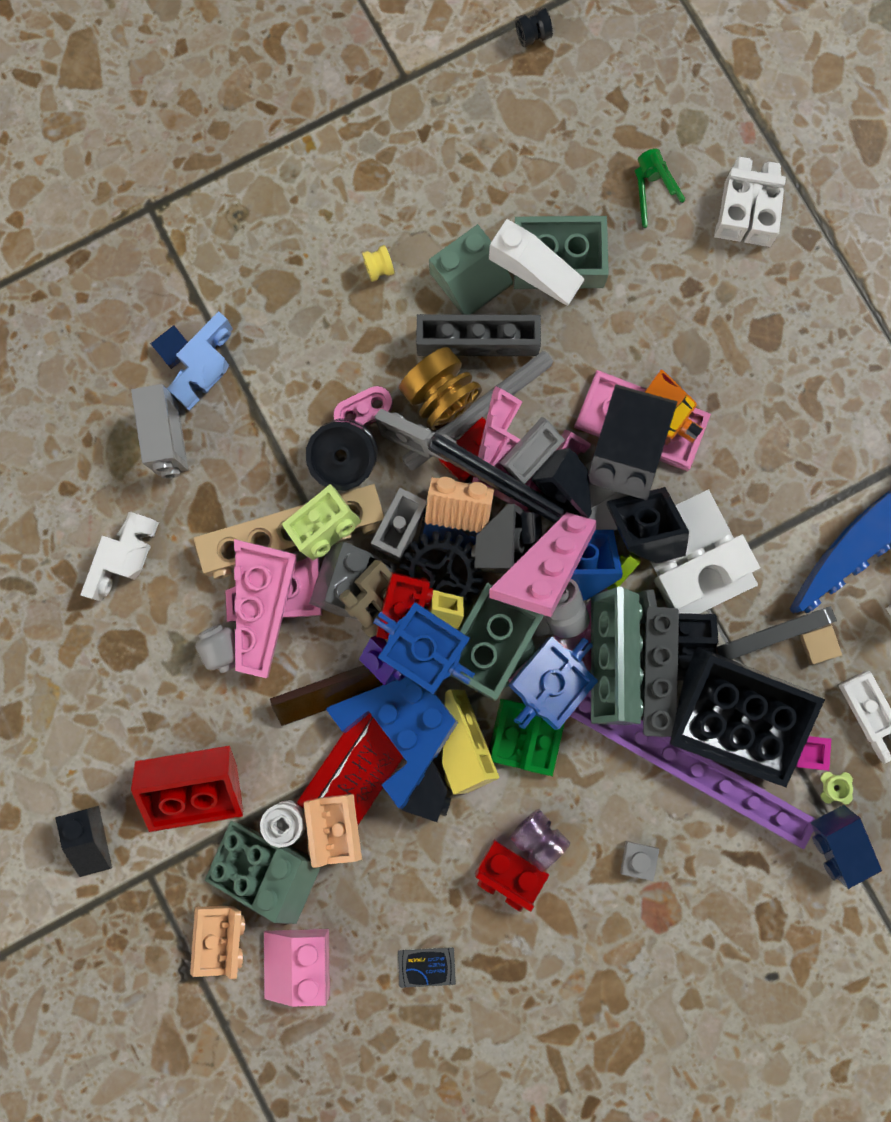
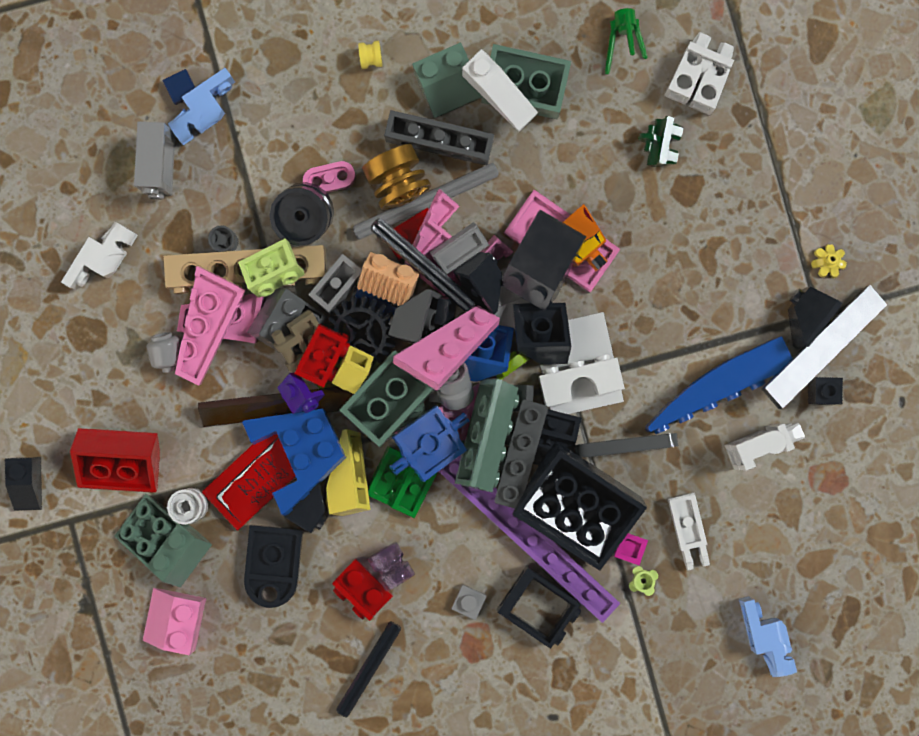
camera: 10 degrees right, 5 degrees up
(217, 941) = (114, 586): light nougat bracket -> none
(253, 500) = (219, 238): none -> dark grey wheel
(332, 830) = (225, 520): light nougat bracket -> none
(398, 868) = (274, 562): none -> black plate
(405, 433) = (364, 212): light grey hinge -> none
(424, 648) = (329, 392): blue plate -> none
(426, 967) = (278, 646): sticker -> none
(541, 971) = (368, 669): none -> black axle
(692, 838) = (518, 588): none -> black window
(724, 285) = (658, 141): none -> dark green hips
(820, 645) = (661, 462): tan tile -> none
(845, 846) = (635, 628): dark blue brick -> none

